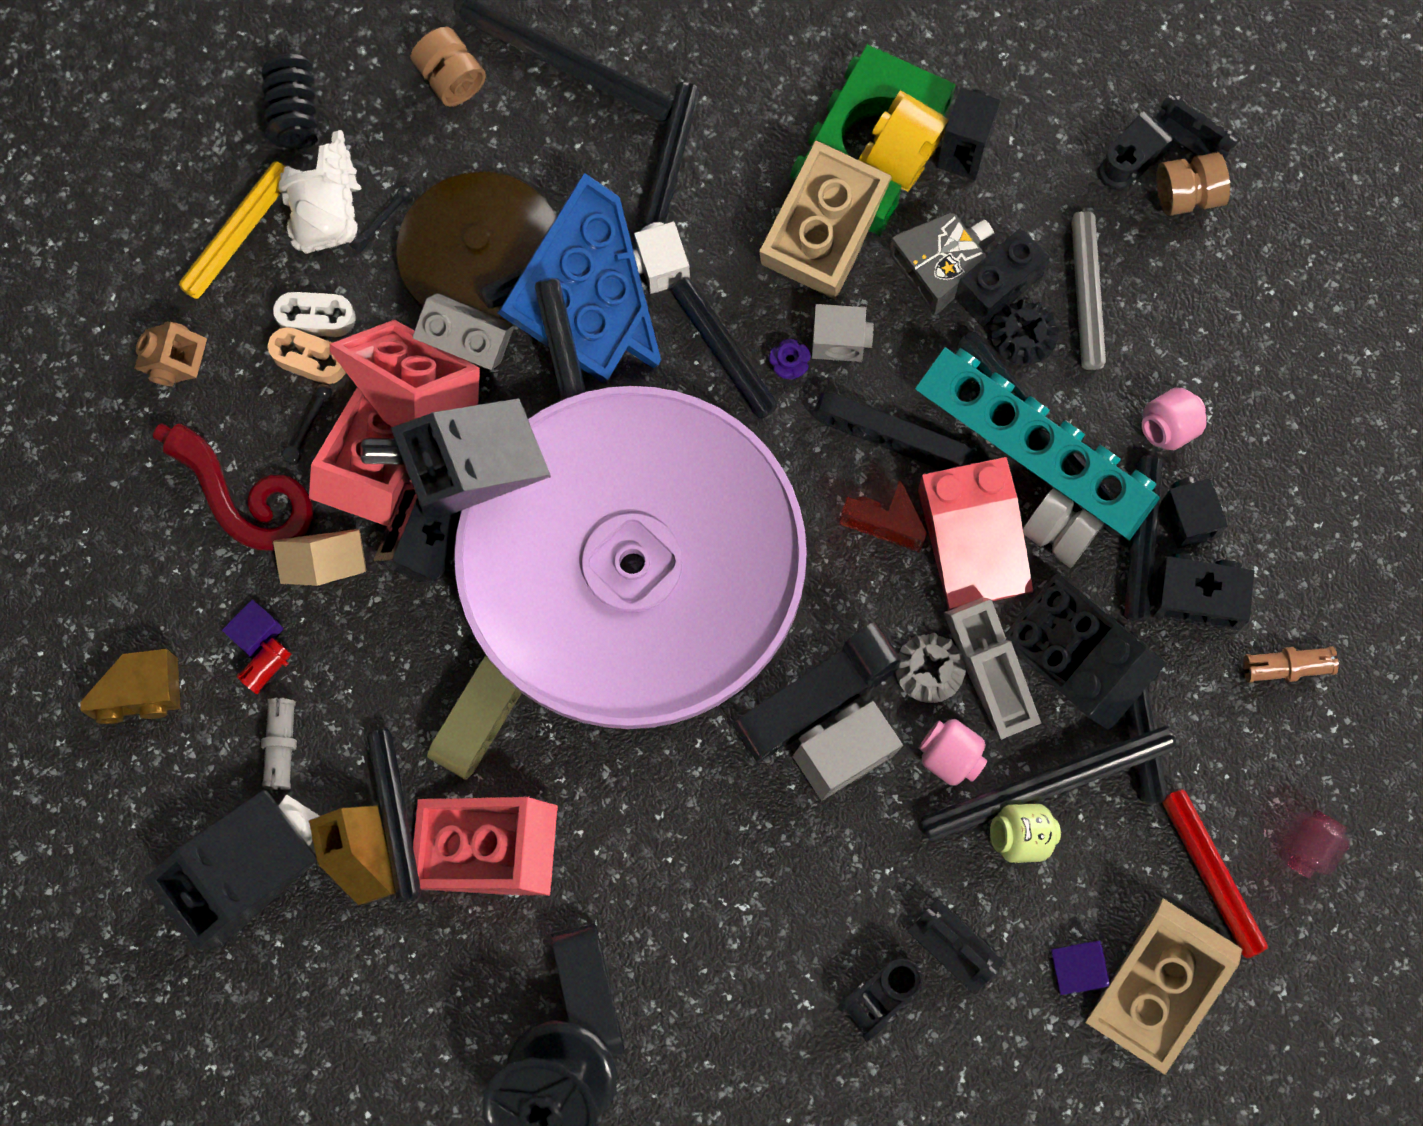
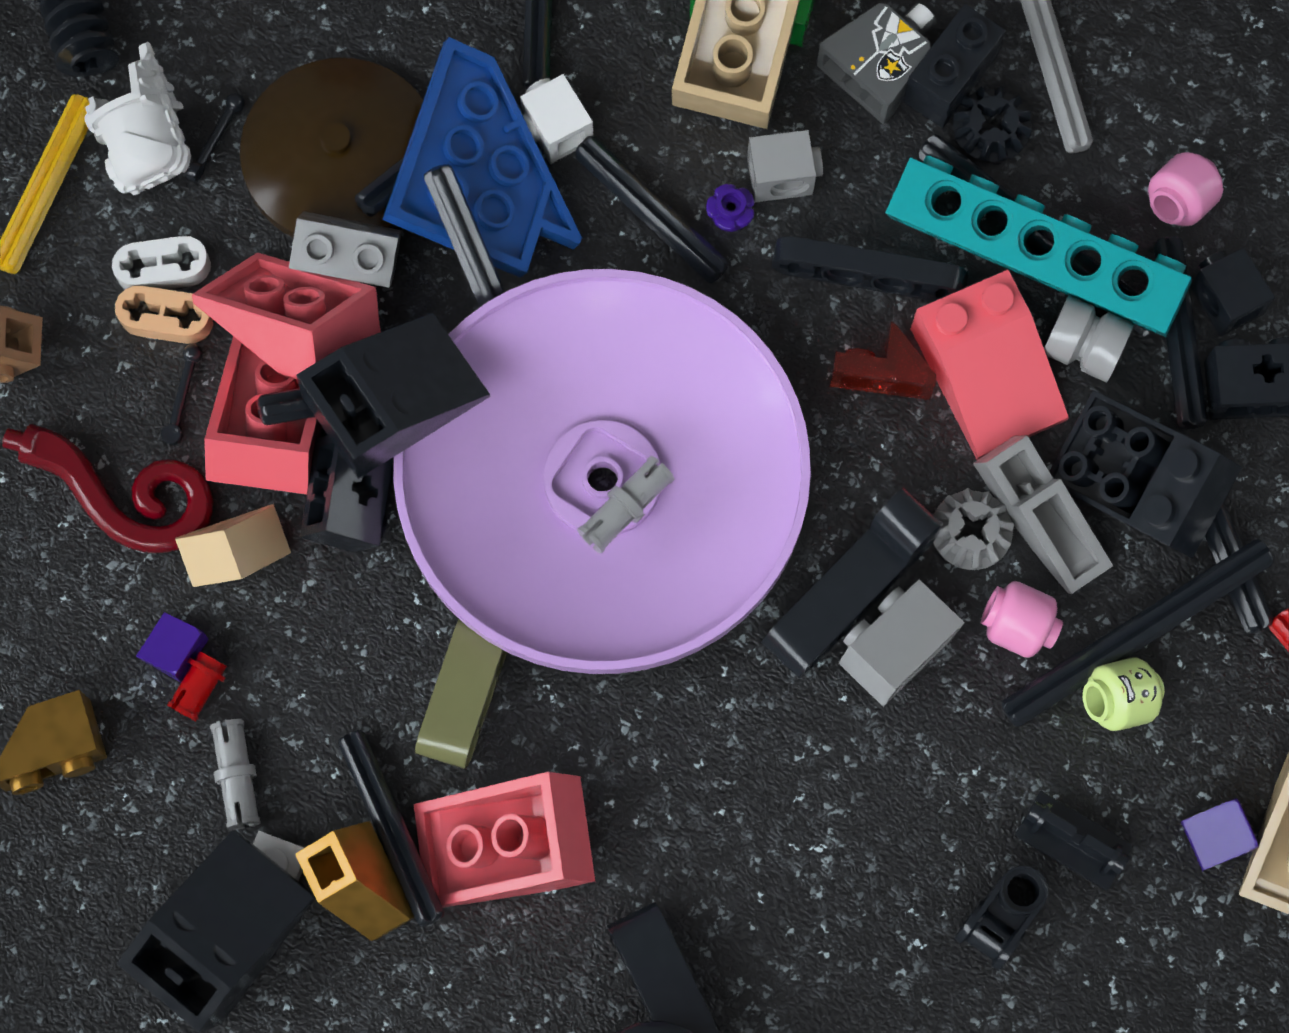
camera: 15 degrees left, 0 degrees up
(641, 588) = (625, 504): none -> light grey pin

